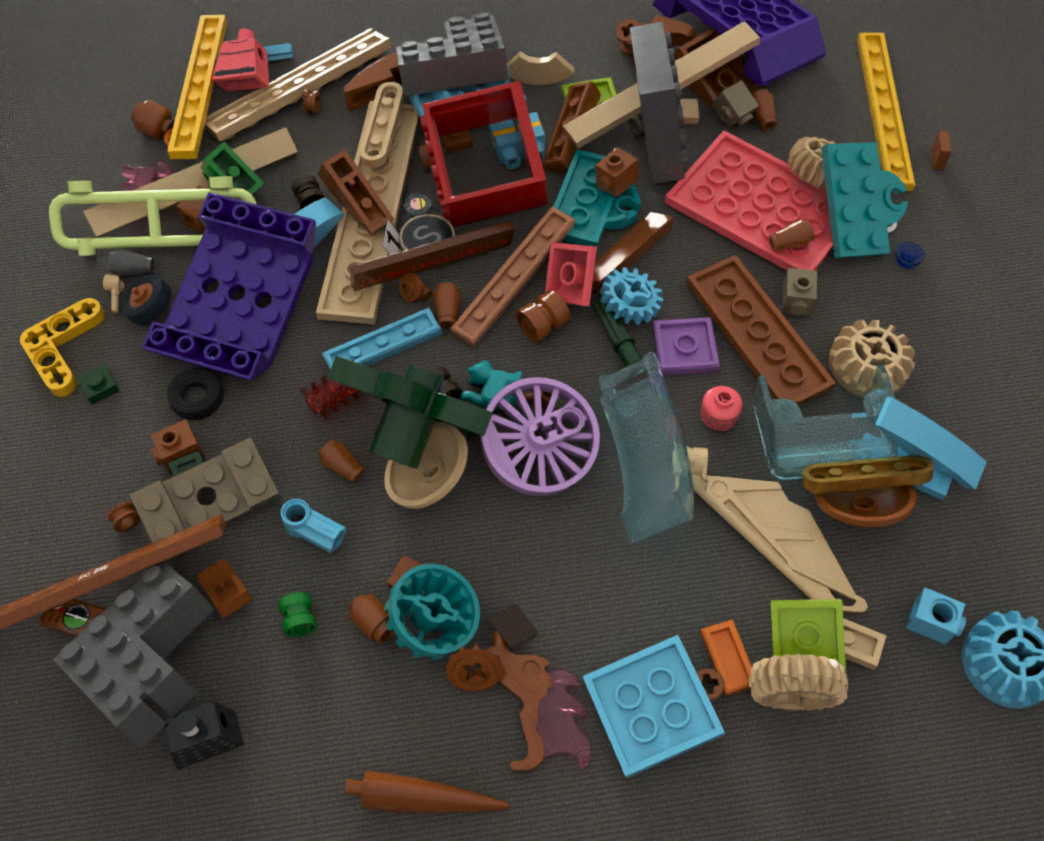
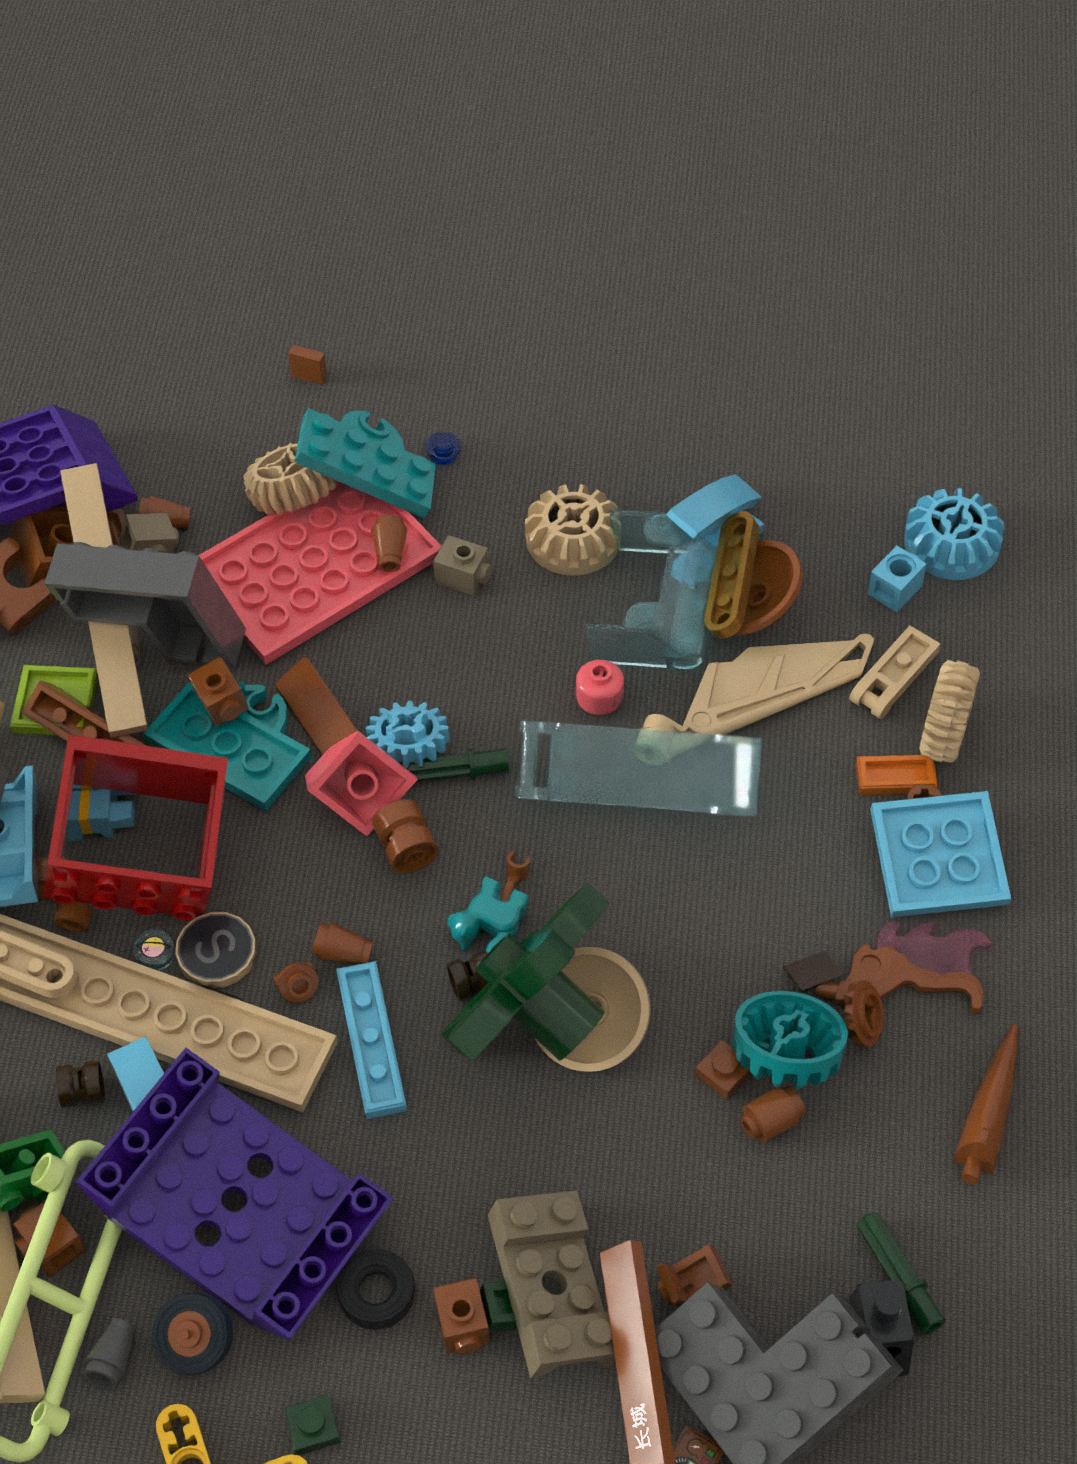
camera: 75 degrees left, 5 degrees down
(116, 286) = (139, 1382): tan hand -> none
(124, 516) = (551, 1398): dark orange bush -> none
(255, 745) = (898, 1268): none -> dark green axle
(297, 614) = (747, 1198): green wheel -> none
(313, 527) = (631, 1162): medium azure piece -> none
(327, 396) = (436, 1100): clear red piece -> none
(341, 461) = (542, 1116): dark orange cone -> none
(354, 192) = (115, 1011): dark orange slope -> none
(431, 255) = (265, 941): reddish brown tile -> none
(512, 277) = (326, 857): nougat tile -> none
(556, 436) = (578, 859): lavender piece -> none
(686, 346) = (491, 703): medium lavender tile -> none
(760, 332) = (497, 623): dark orange plate -> none
(808, 628) = (896, 689): lime tile -> none
(885, 107) = (201, 393): yellow tile -> none

